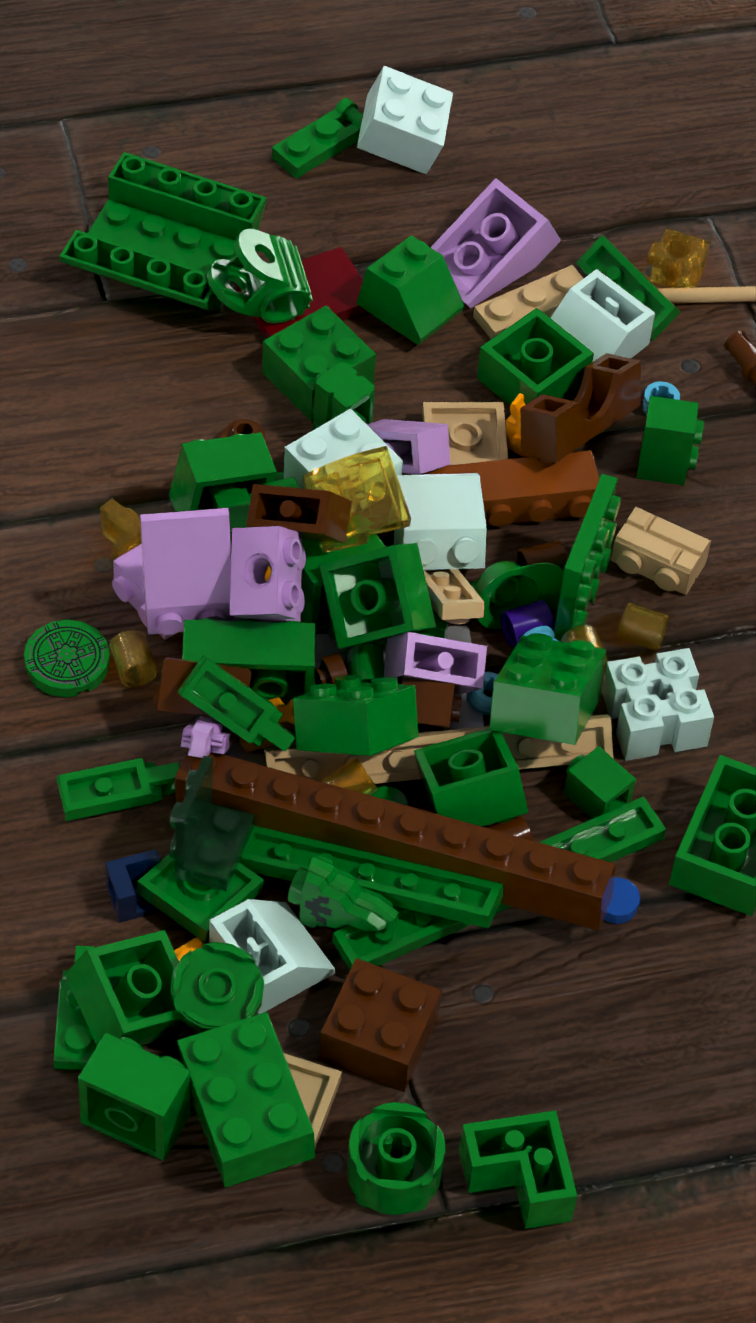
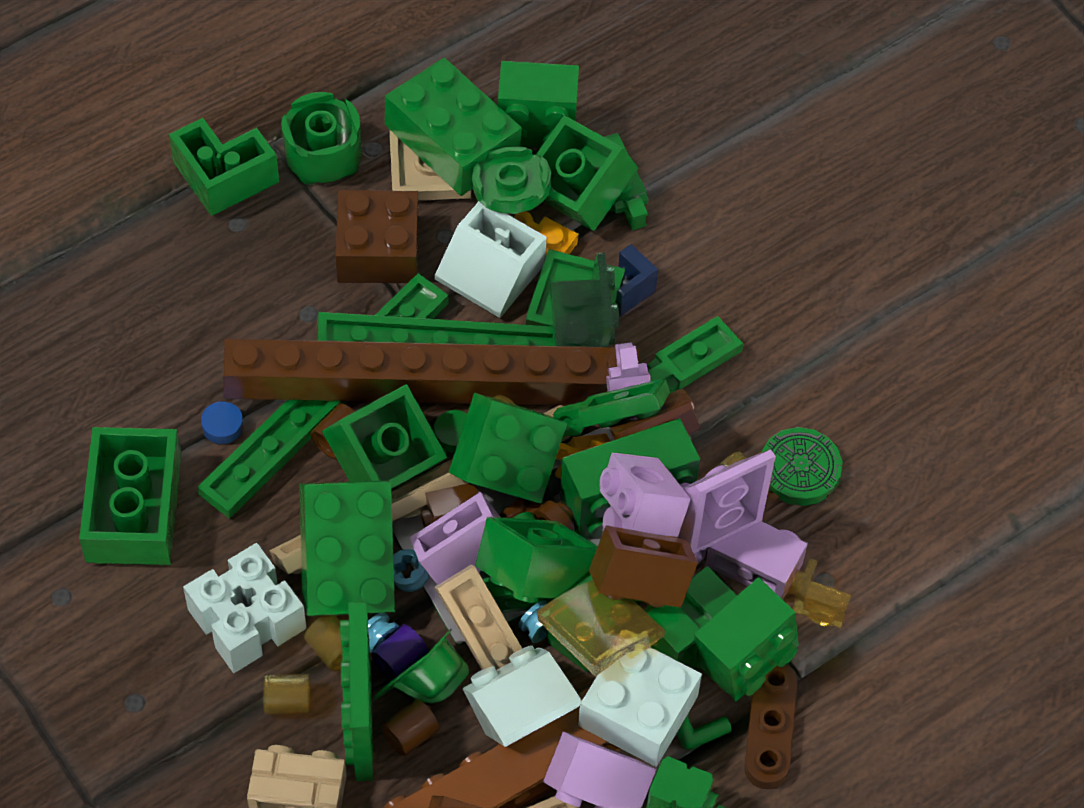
camera: 160 degrees right, 5 degrees up
(337, 900) = (450, 302): green rock -> none
(598, 783) = (270, 510): green brick -> none

